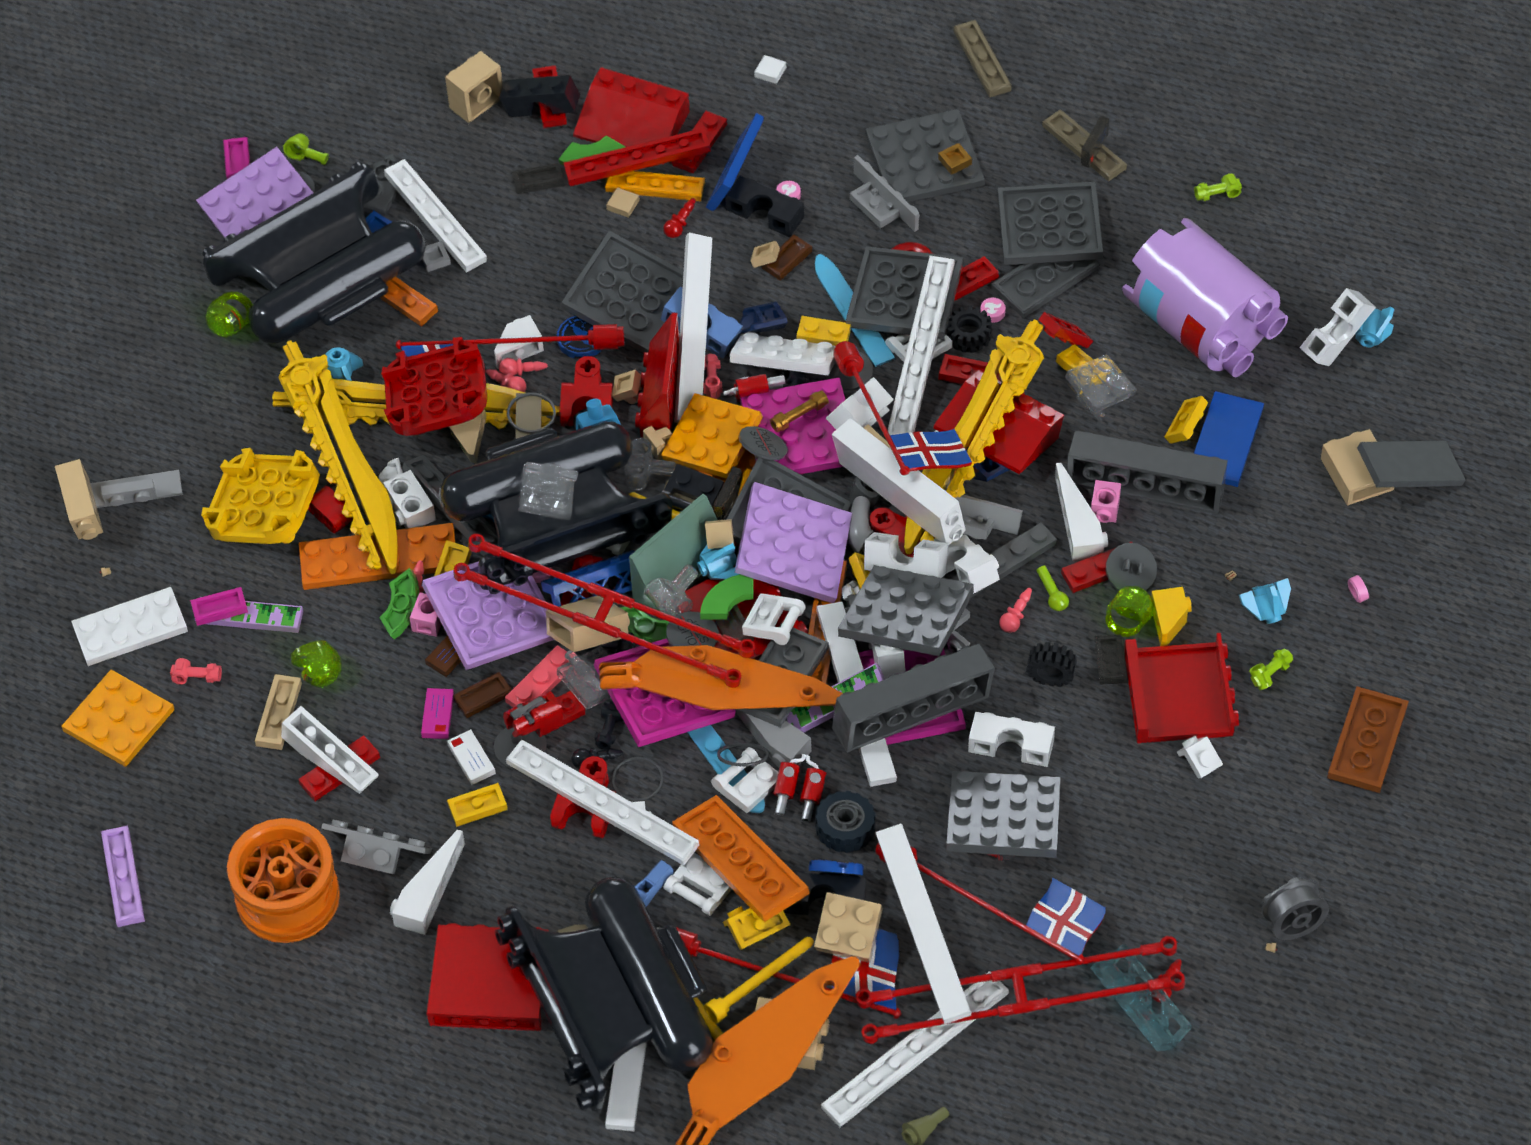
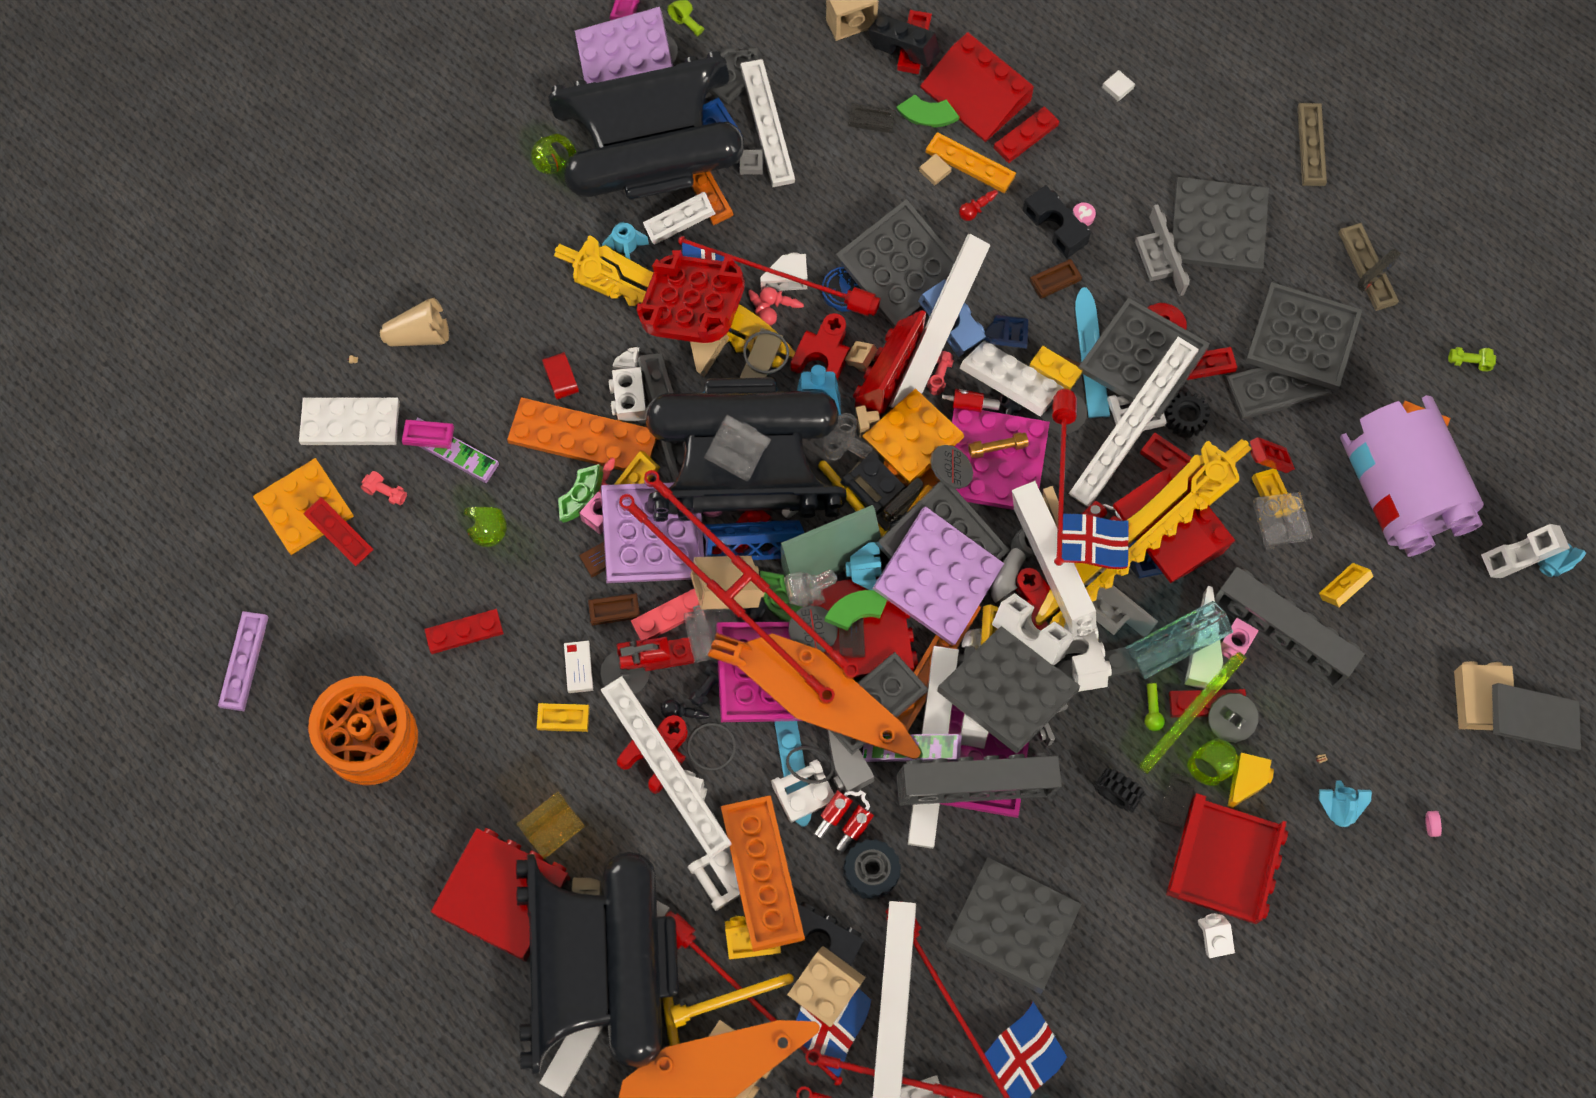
camera: 20 degrees right, 15 degrees up
(79, 499) = (351, 288): tan brick -> none
(137, 489) = (400, 289): light grey bracket -> none
(160, 515) = (417, 326): none -> tan cone
(169, 722) = (338, 532): none -> red plate
(261, 498) = (505, 344): yellow plate -> none
(278, 708) = (435, 556): tan plate -> none
(304, 394) = (579, 262): yellow piece -> none
(326, 750) = (456, 618): white slope -> none
(372, 850) = (459, 724): light grey bracket -> none
(385, 328) = (679, 218): none -> white plate
(423, 893) = (482, 786): white slope -> none
(437, 713) = (568, 612): dark pink tile -> none
(510, 888) = (550, 825): none -> clear yellow bracket
(637, 157) = (964, 132): red plate -> none
(654, 881) = (682, 856): medium blue bar -> none
(719, 533) = (873, 546): tan tile -> none
(735, 162) = (1047, 169): blue tile -> none
(765, 254) = (1036, 269): tan tile -> none
(766, 613) = (882, 641): white plate -> none
(835, 867) = (843, 920): blue tile -> none
(858, 409) = (1045, 467): white arch -> none
(955, 158) = (1244, 240): pearl gold plate -> none
(991, 730) = (1073, 856): white arch -> none
(994, 308) = (1217, 401): bright pink tile -> none
(1010, 621) = (1102, 724): coral bar -> none
(1050, 515) = (1181, 641): none -> clear light blue fence
(1089, 573) = (1191, 712): none -> clear neon green tile
(1230, 432) = (1378, 613): blue tile -> none
(1261, 674) = (1307, 875): lime bar -> none
(1368, 739) = (1378, 984): dark orange plate -> none

